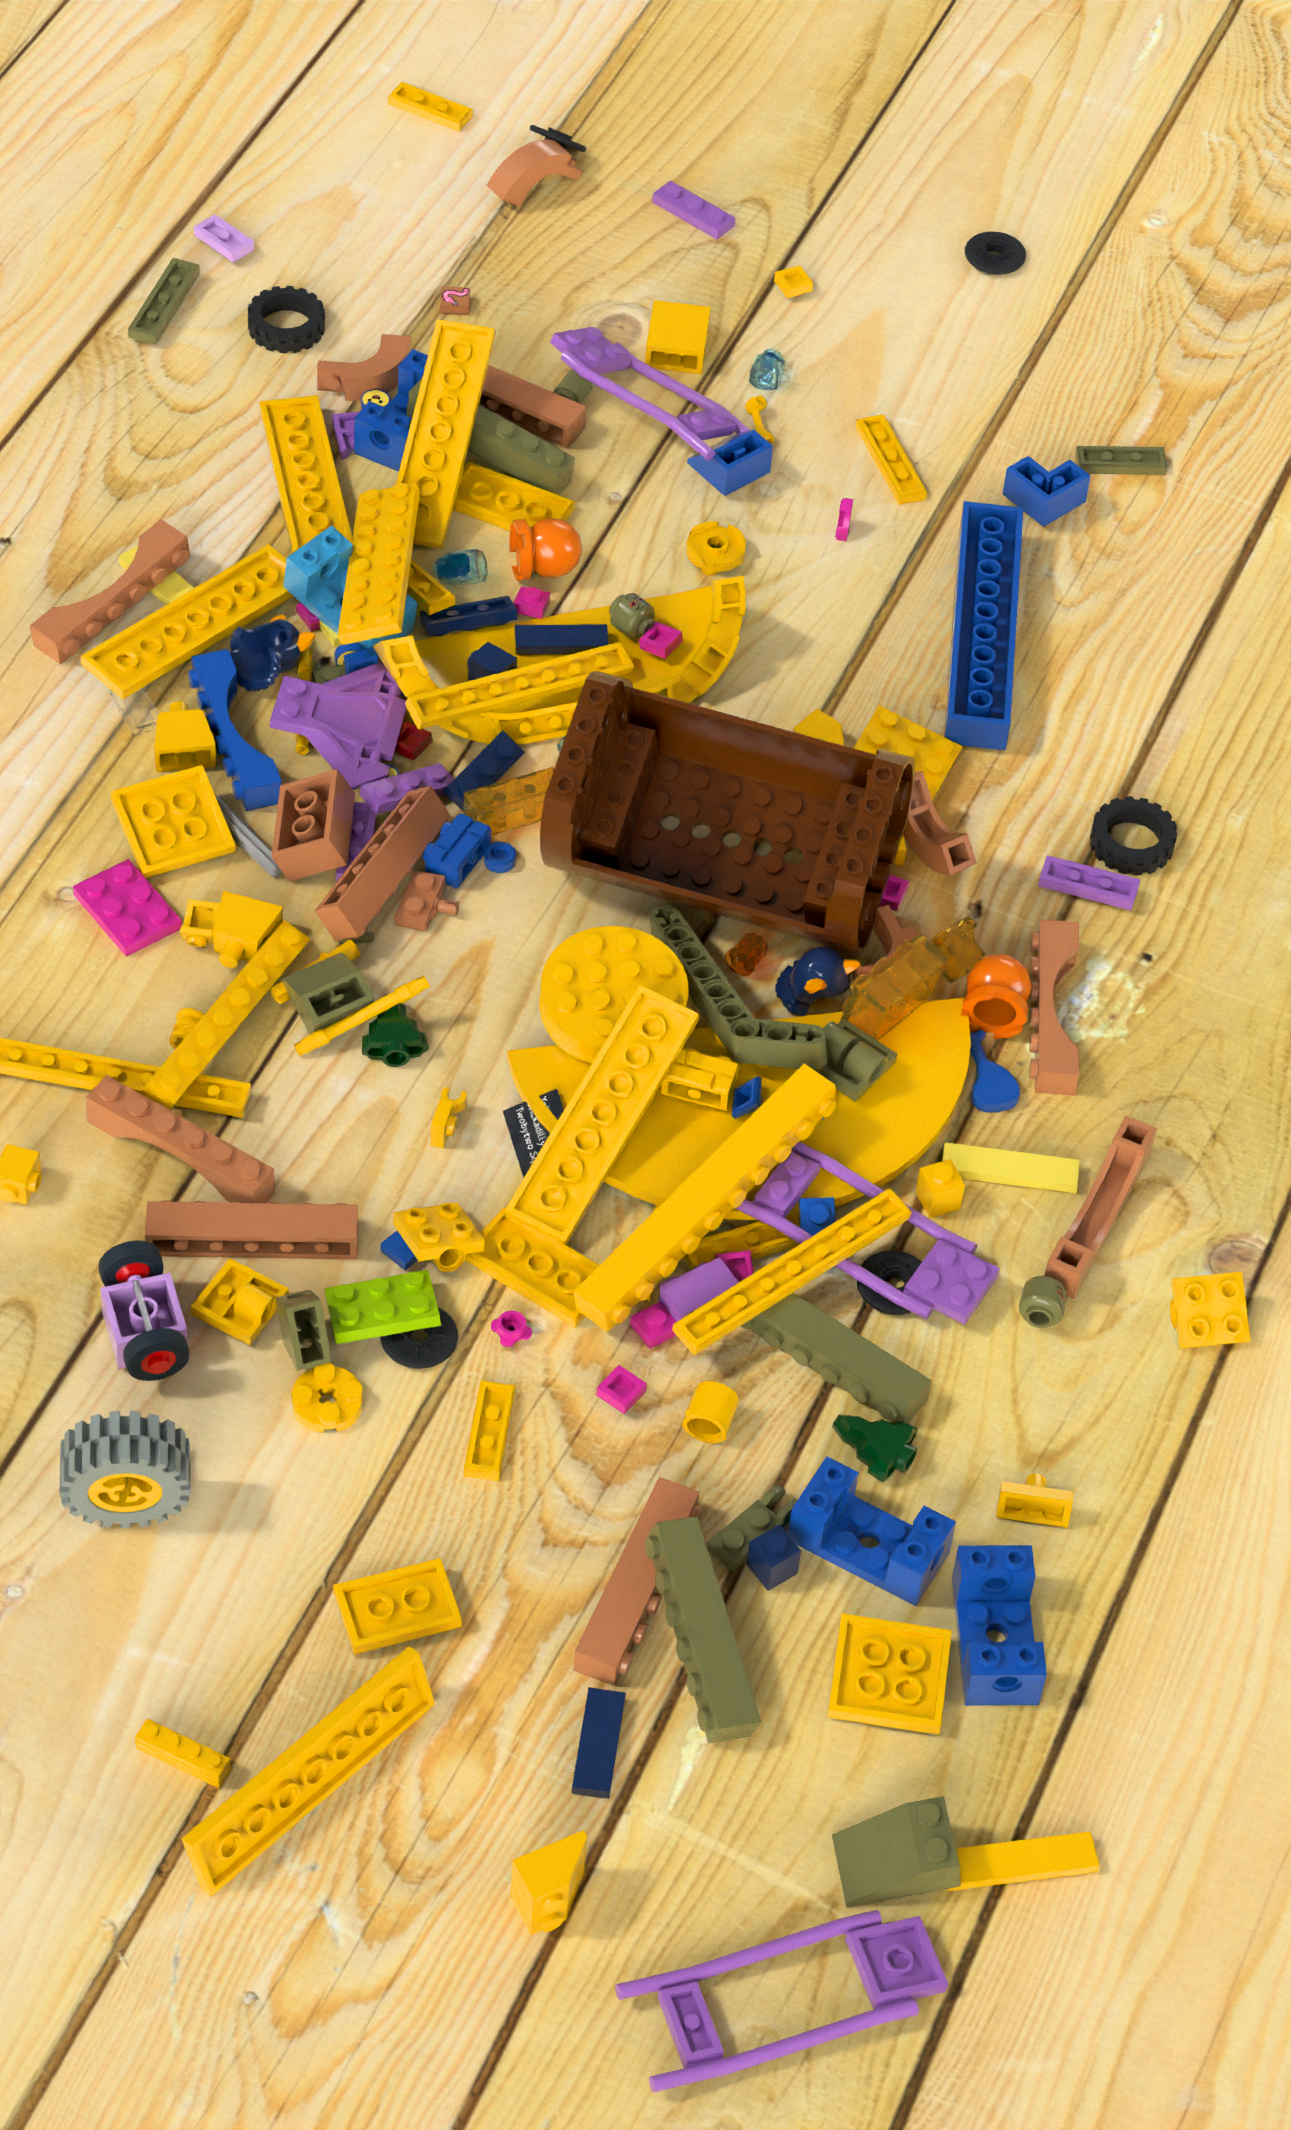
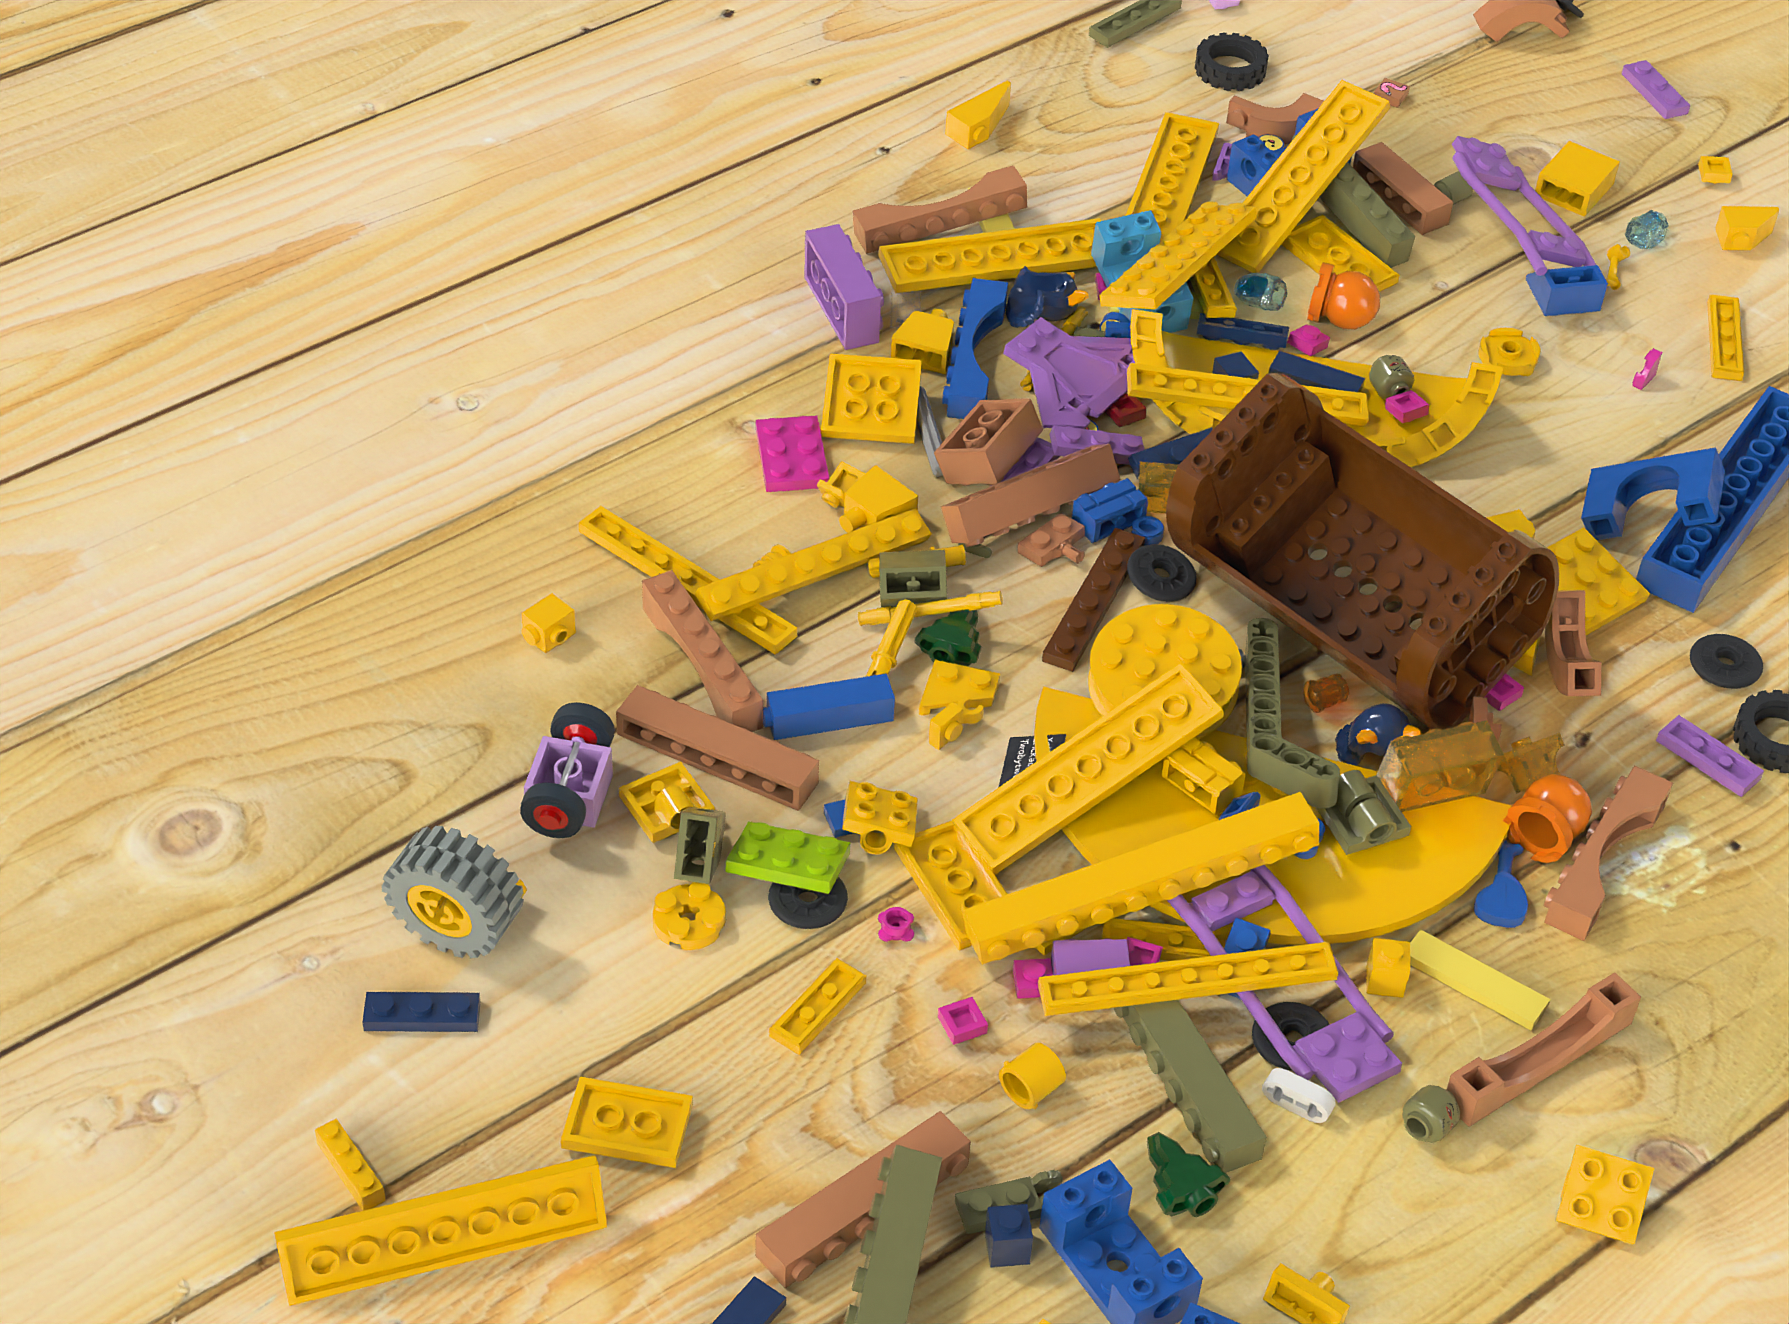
camera: 30 degrees right, 5 degrees down
(73, 713) = (843, 286): none -> medium lavender brick
(77, 477) = (978, 117): none -> yellow slope
(149, 1590) = (421, 1011): none -> dark blue plate
(328, 1148) = (829, 706): none -> blue brick
(347, 1069) = (885, 656): none -> yellow axle
(423, 1079) = (952, 681): none -> yellow wing
(493, 945) = (1092, 601): none -> reddish brown plate
(547, 910) = (1166, 589): none -> black wheel
(849, 335) = (1745, 226): none -> yellow slope
(886, 650) = (1614, 488): none -> blue arch
(930, 1332) = (1298, 1095): none -> white beam
(1068, 799) = (1746, 659): none -> black wheel

